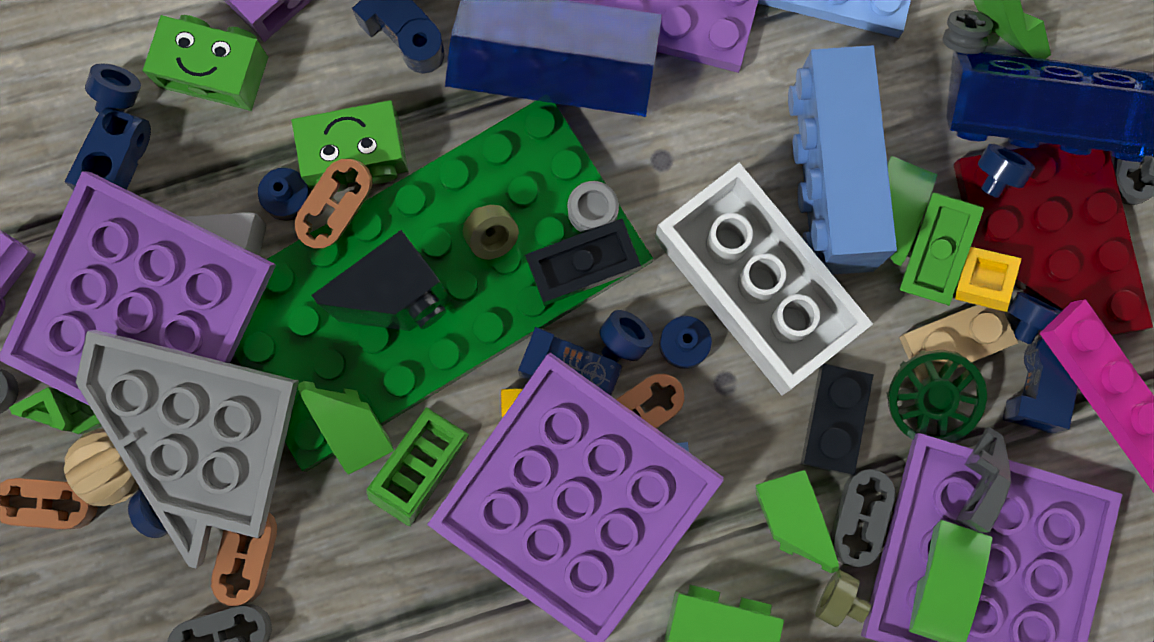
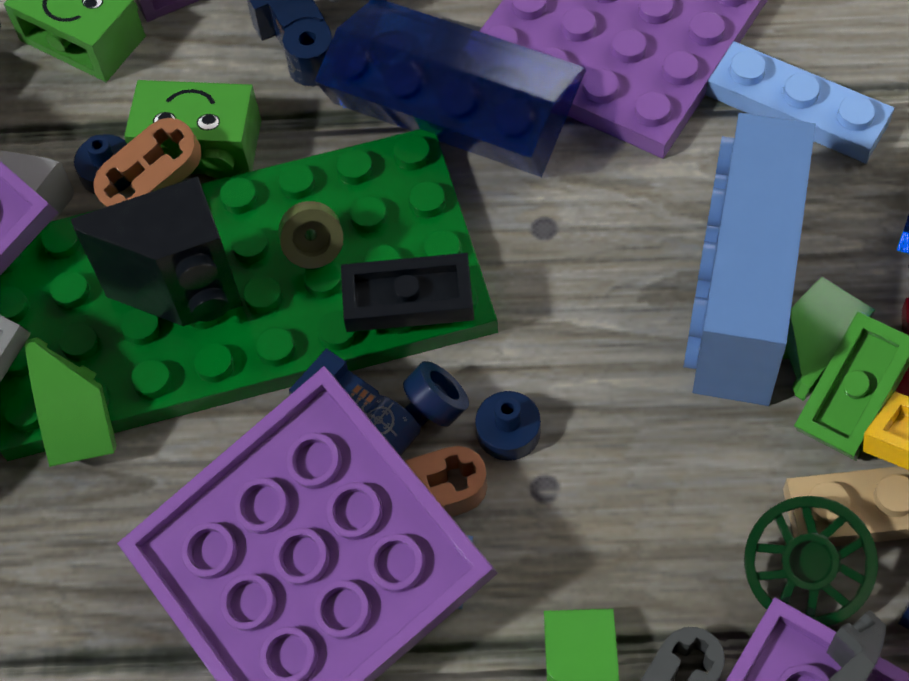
camera: 20 degrees right, 20 degrees down
(377, 490) = (122, 514): bright green slope -> none
(592, 206) = (440, 235): light grey tile -> none
(761, 279) = (620, 368): white brick -> none
(837, 419) = (673, 563): black plate -> none

